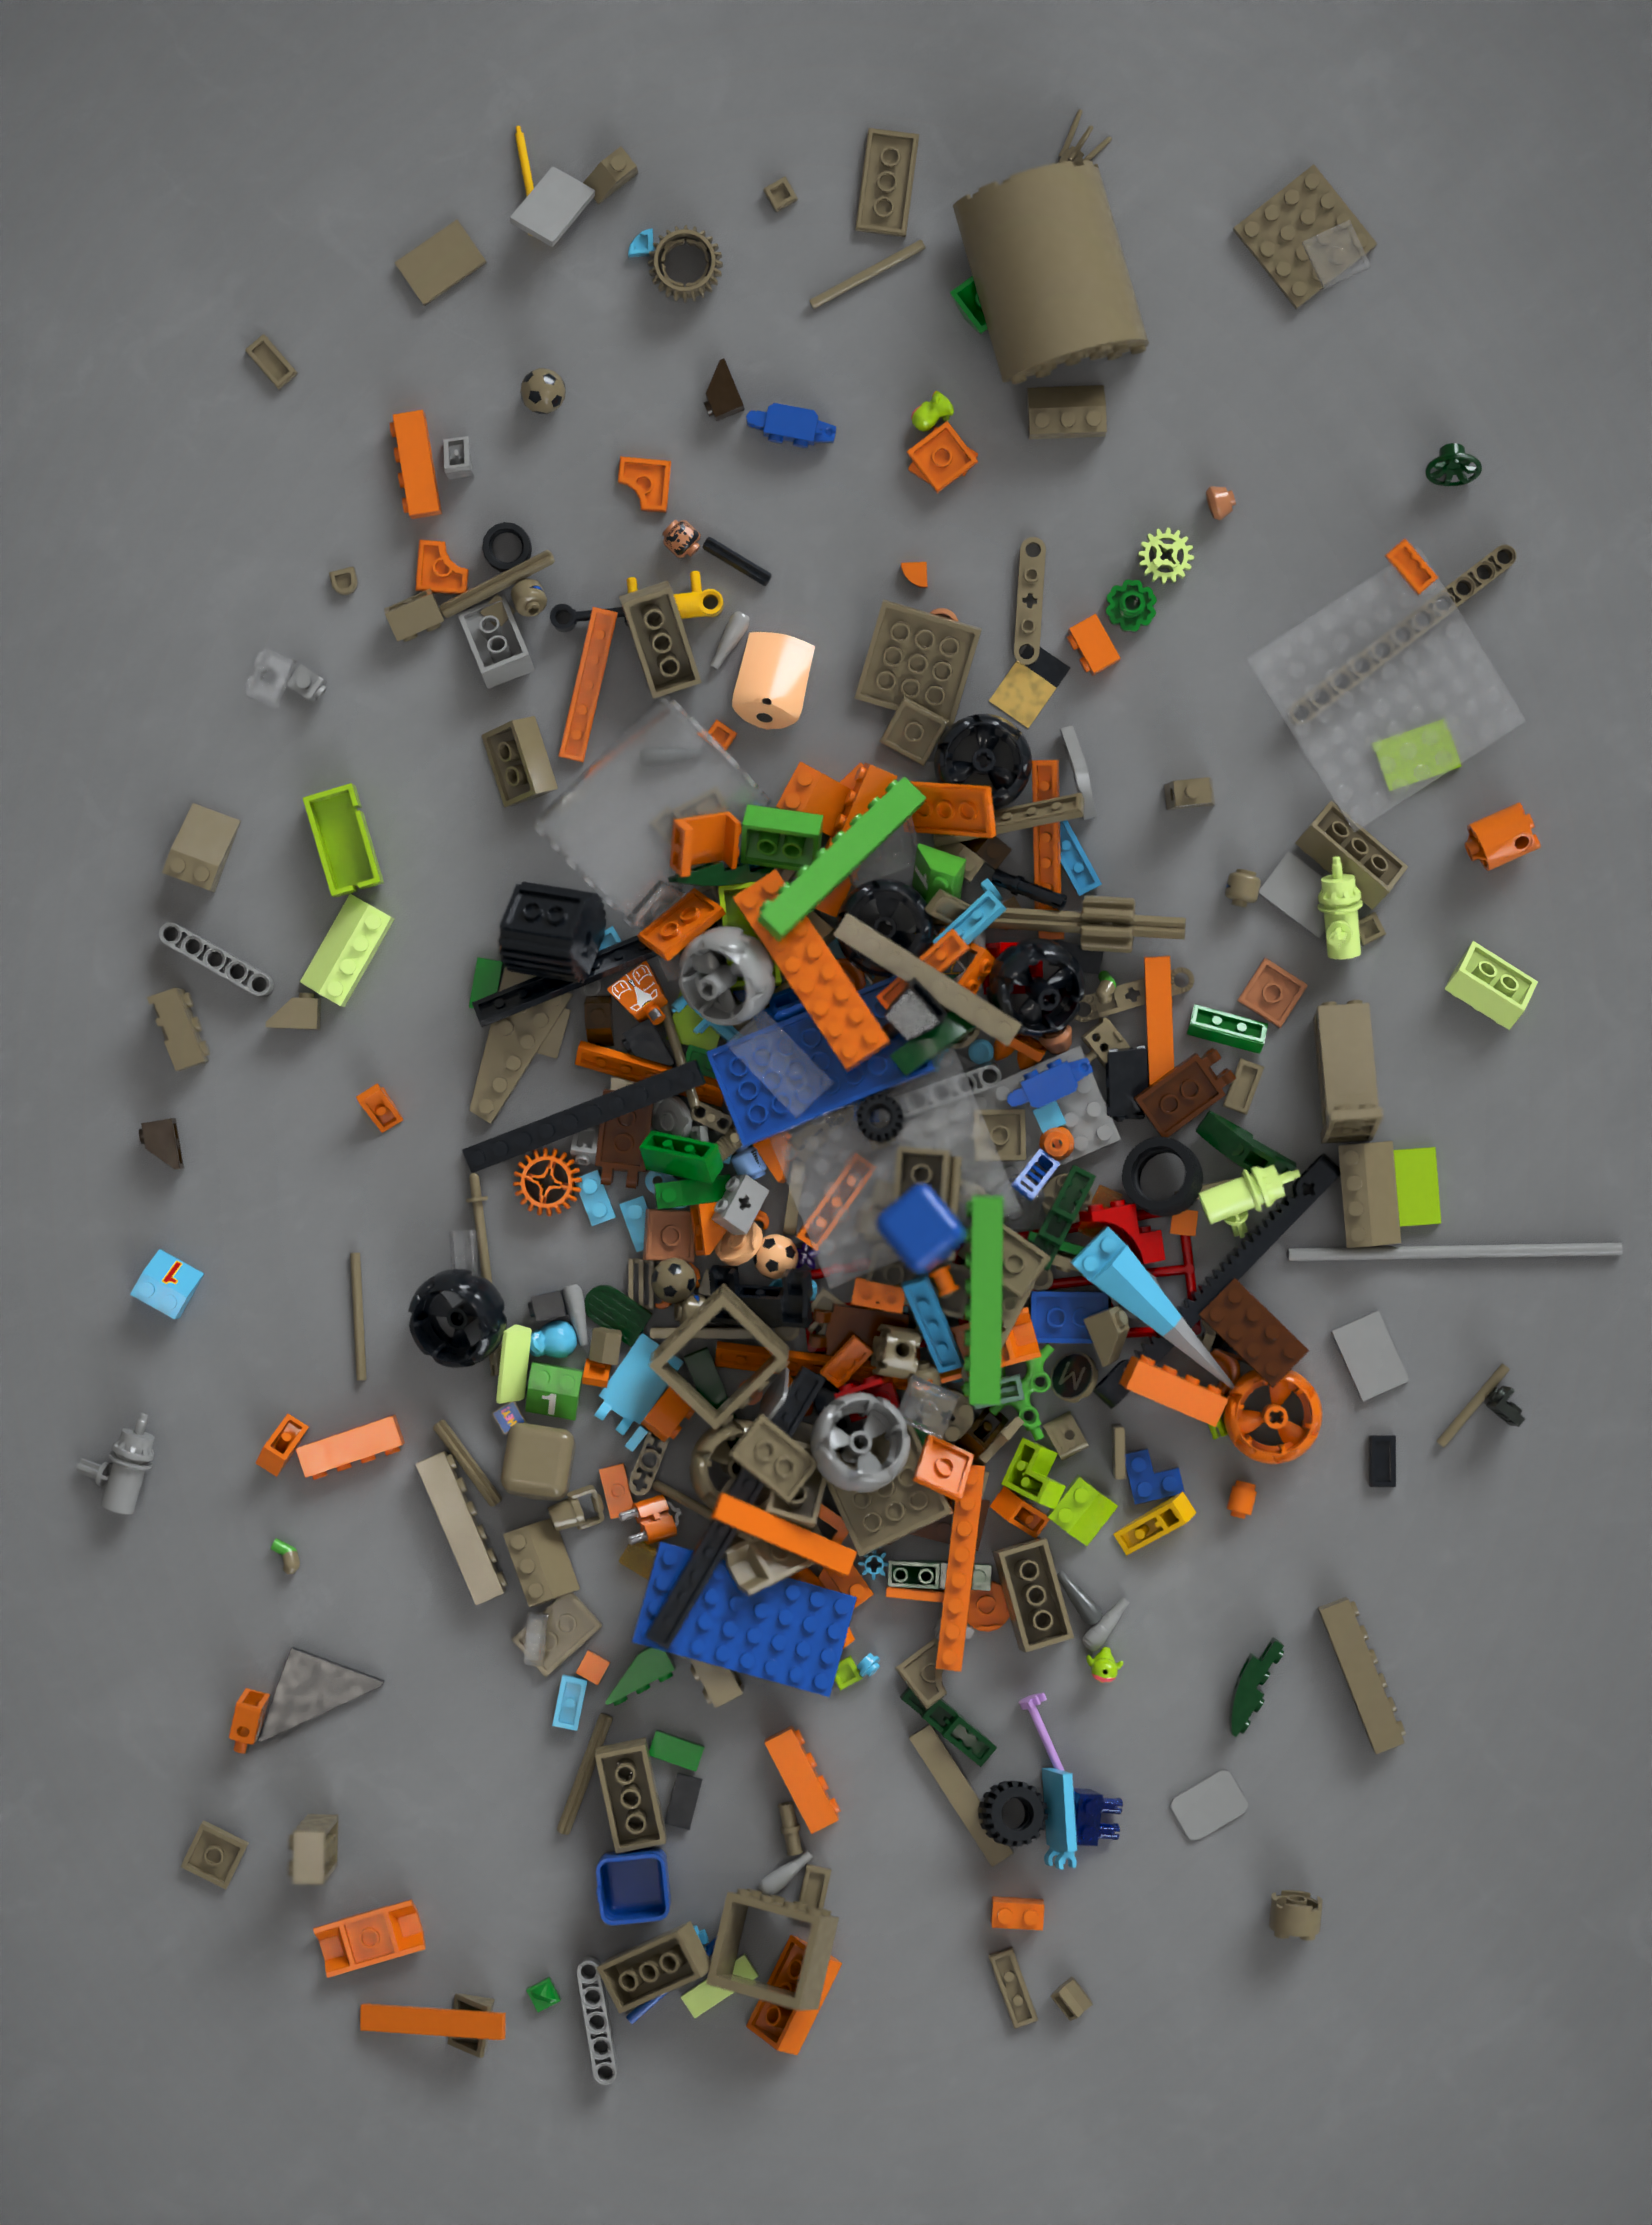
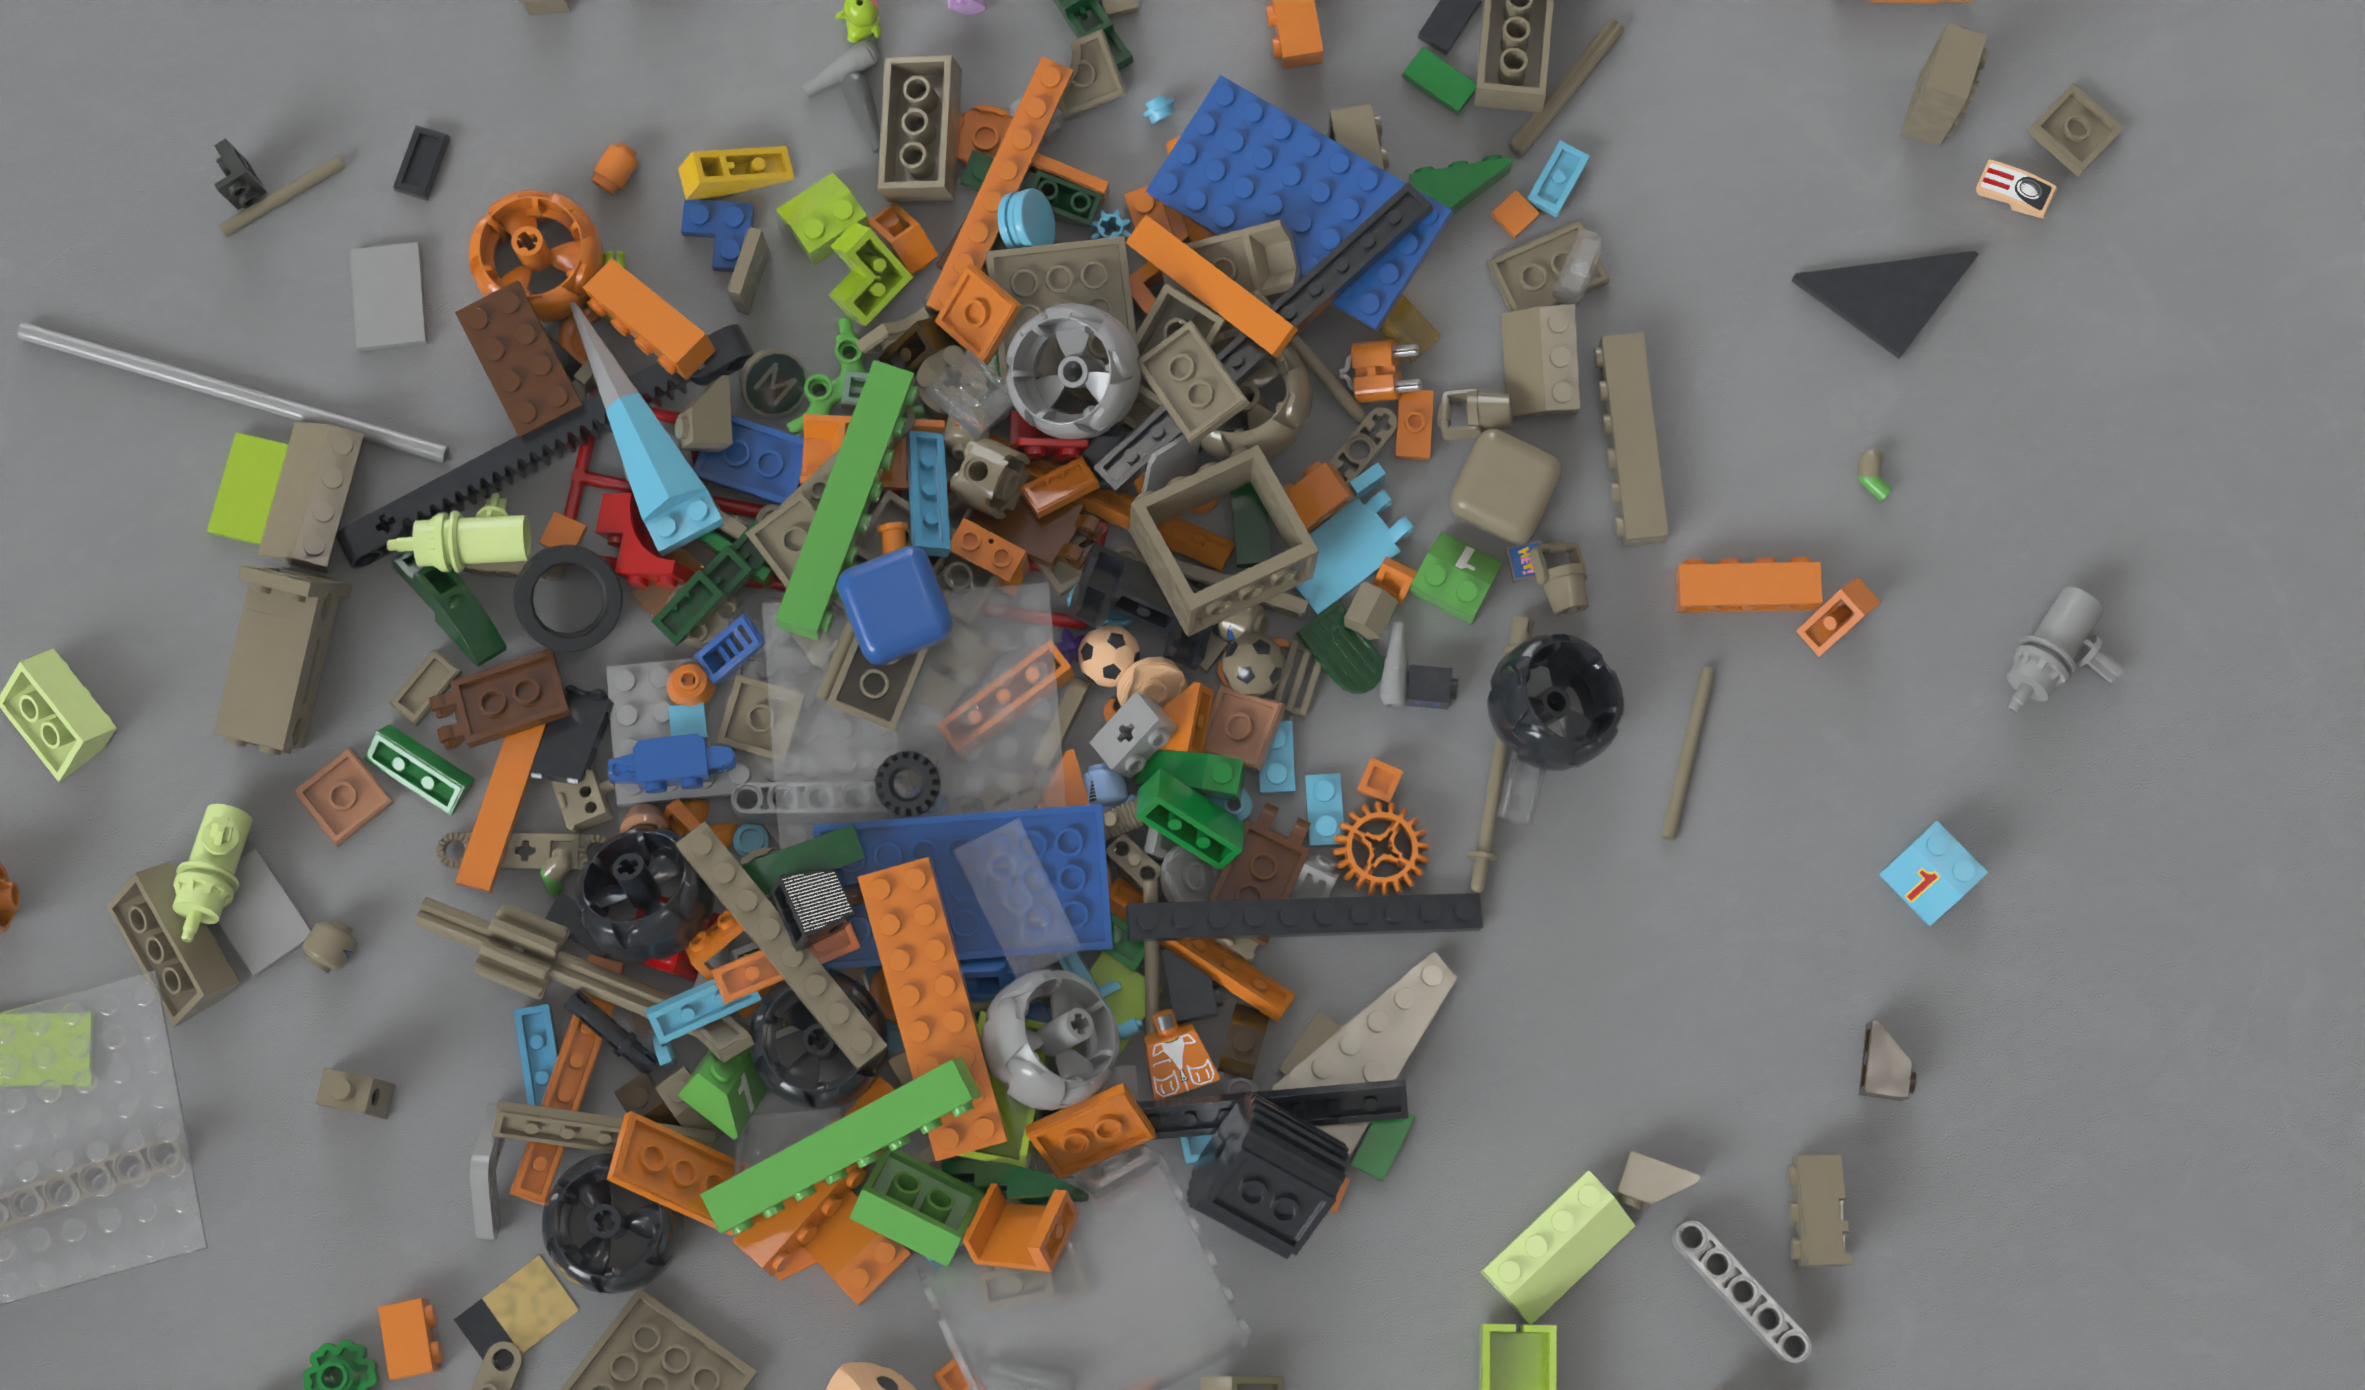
camera: 160 degrees left, 10 degrees down
(244, 1797) = (2016, 187): none -> slope
(248, 1719) = (1983, 281): orange torso -> none
(380, 1107) = (1576, 1018): orange slope -> none
(467, 1463) = (1599, 519): dark tan axle -> none
(475, 1406) = (1564, 583): none -> dark tan piece
(513, 1364) = (1498, 623): yellowish green slope -> none
(554, 1340) = (1437, 642): medium azure hair -> none
(563, 1229) = (1379, 781): none -> orange plate
(847, 1673) = (1186, 107): lime tile -> none
(914, 731) = (692, 1299): dark tan tile -> none
(932, 1546) = (1026, 219): none -> medium azure head
(1065, 1435) = (811, 315): dark tan piece -> none
(1370, 928) = (182, 839): dark tan tile -> none

